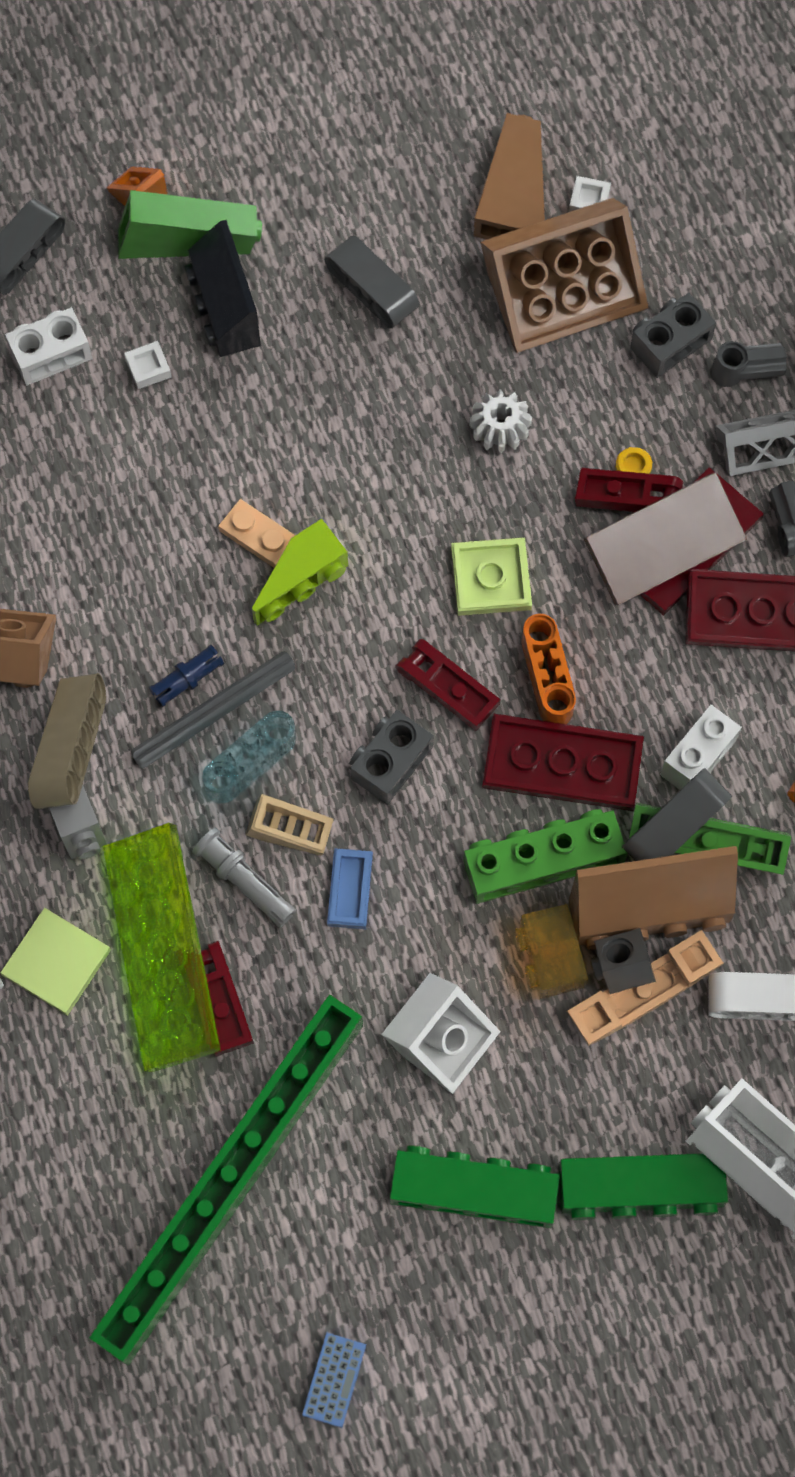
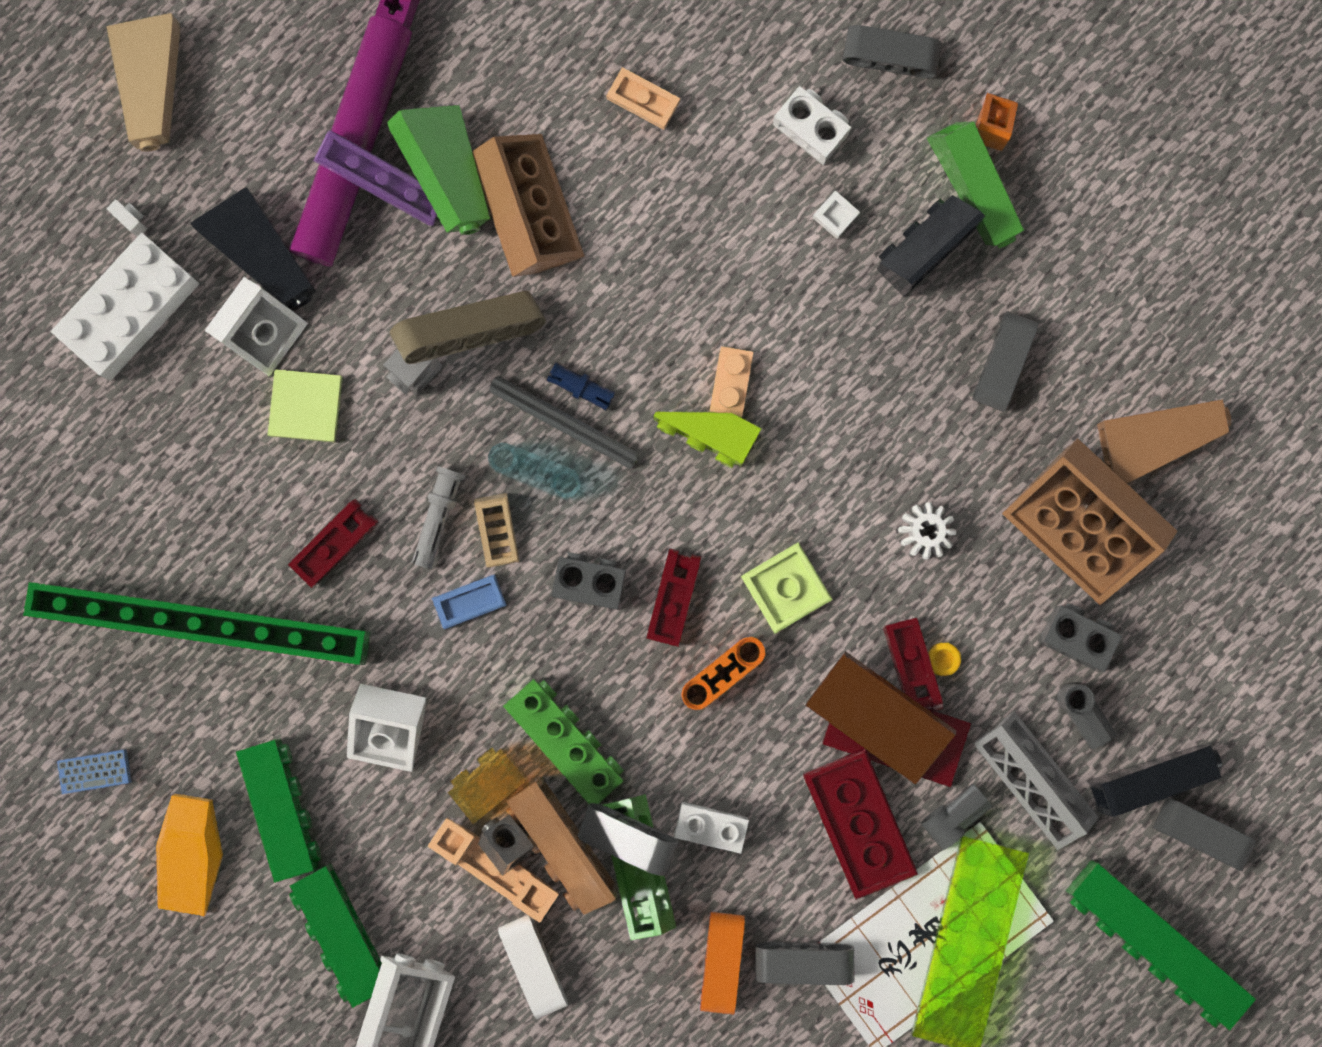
camera: 65 degrees right, 15 degrees up
(161, 948) = (349, 481): clear neon green plate -> none
(478, 1314) = (188, 855): none -> light orange piece
(563, 762) = (653, 720): dark red tile -> none
(588, 192) = (1180, 507): white plate -> none

